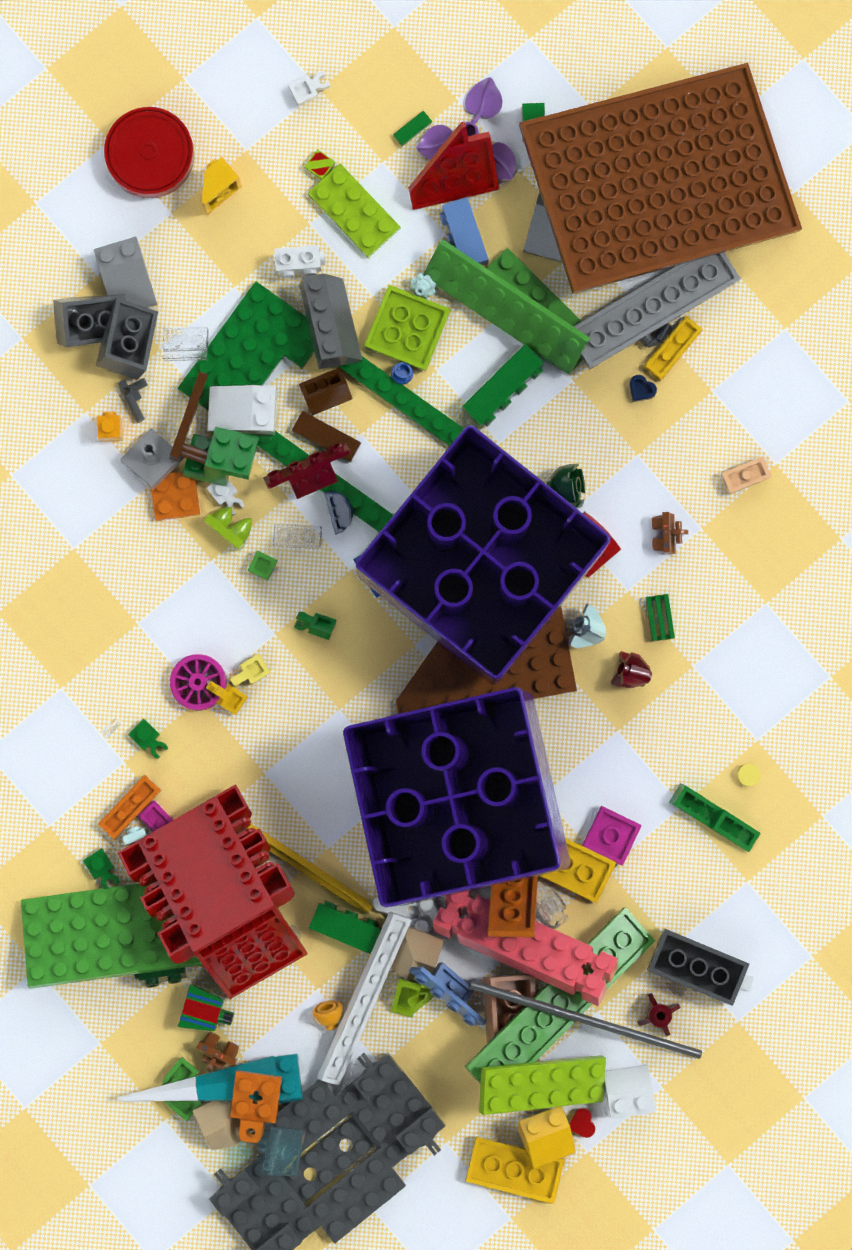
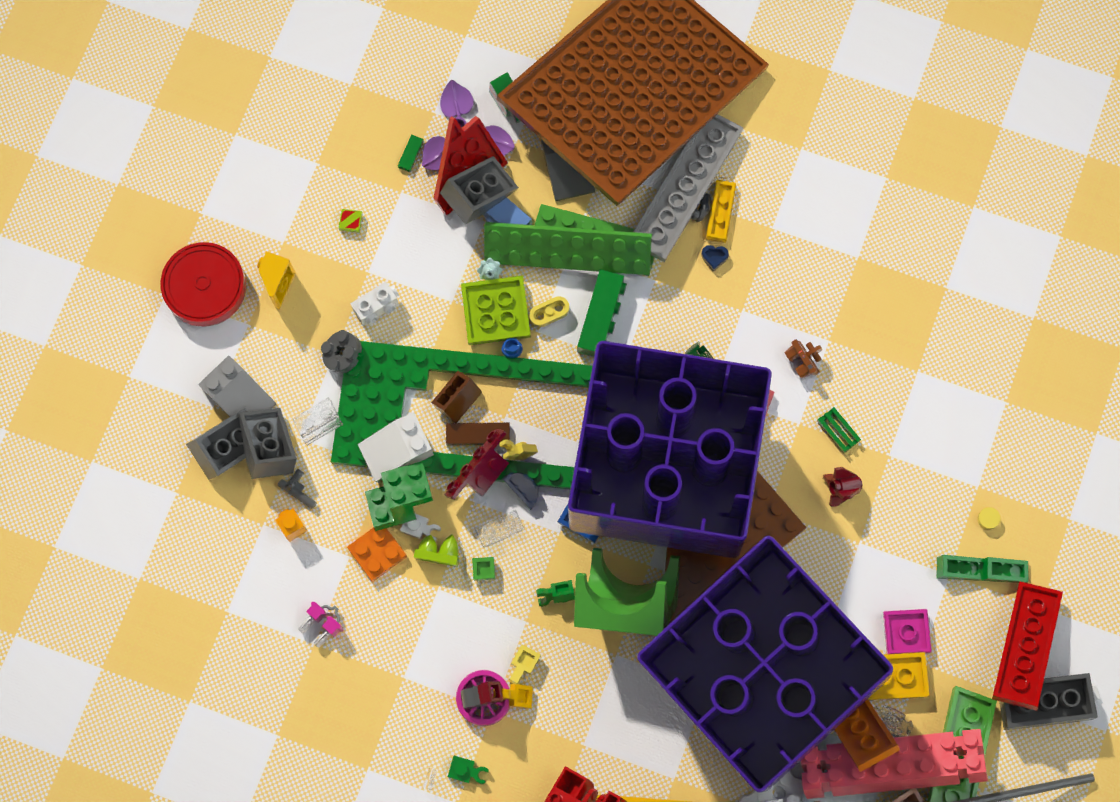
camera: 25 degrees left, 10 degrees down
(96, 542) = (331, 626): none -> piece
(150, 459) = (341, 531): light grey tile -> none
(179, 447) = (360, 507): reddish brown piece -> none
(196, 680) = (481, 695): none -> leg
(234, 282) = (332, 348): none -> dark grey plate
(306, 89) = (306, 167): white plate -> none
(330, 320) = (428, 337): dark grey slope -> none
(353, 474) = (519, 451): none -> light yellow plate
(354, 210) = (399, 241): lime plate -> none
(366, 672) = (621, 606): none -> bright green piece
(453, 204) = (478, 189): none -> dark grey slope
(456, 356) = (548, 310): none -> light yellow plate
(588, 629) = (786, 470): light aqua brick -> none
(652, 1012) = (1033, 764): dark red brick -> none
(710, 908) = (1027, 646): none -> red plate
(746, 475) = (840, 278): light nougat plate -> none

